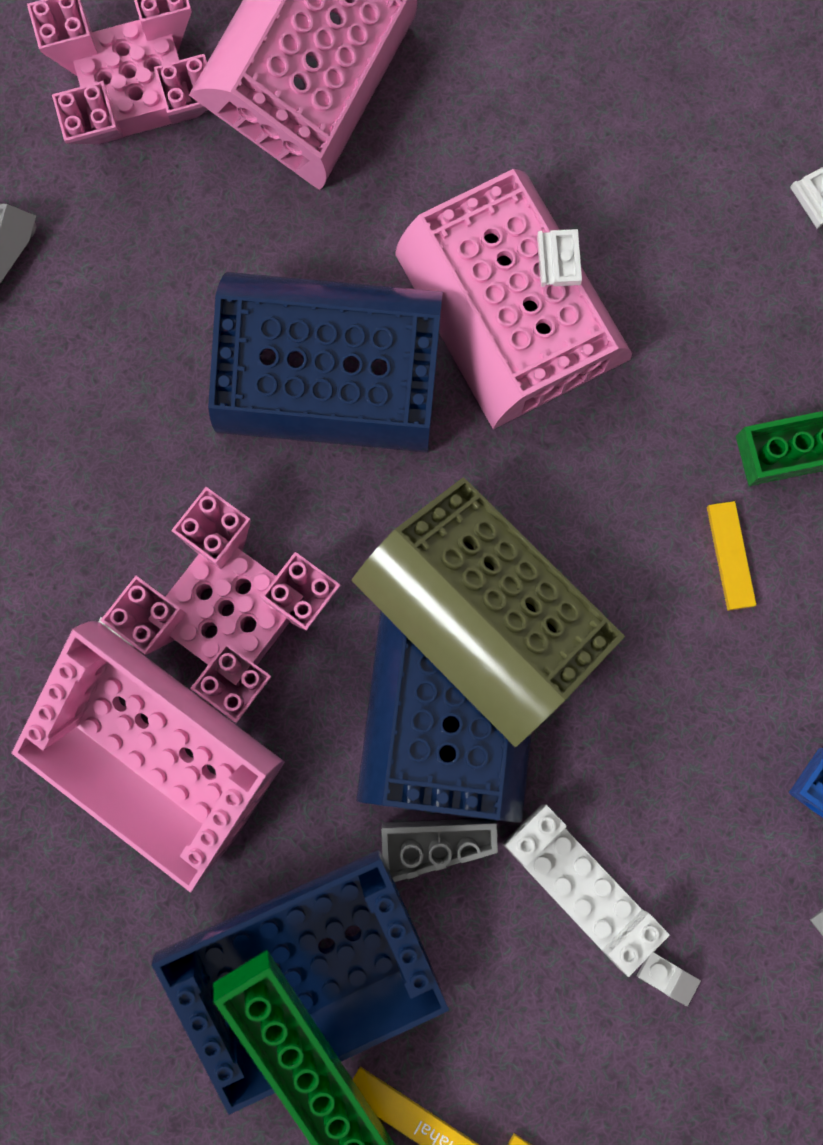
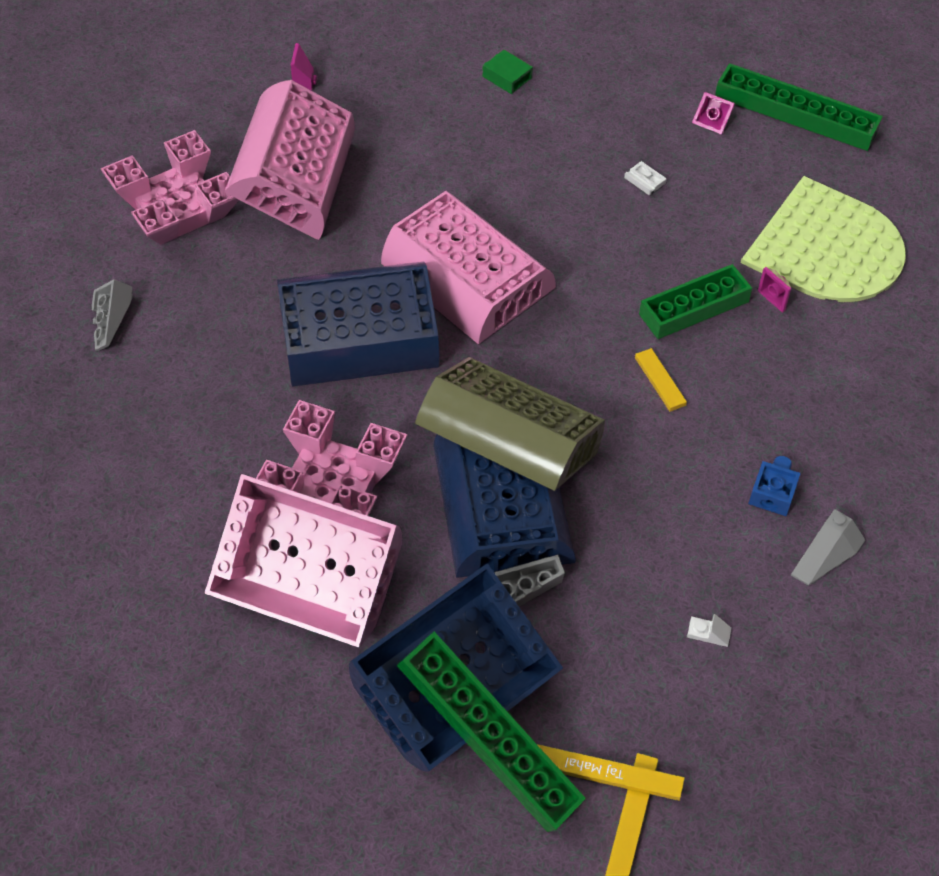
camera: 15 degrees left, 25 degrees down
(559, 258) = (491, 227): white plate -> none
(585, 890) = (628, 589): white plate -> none

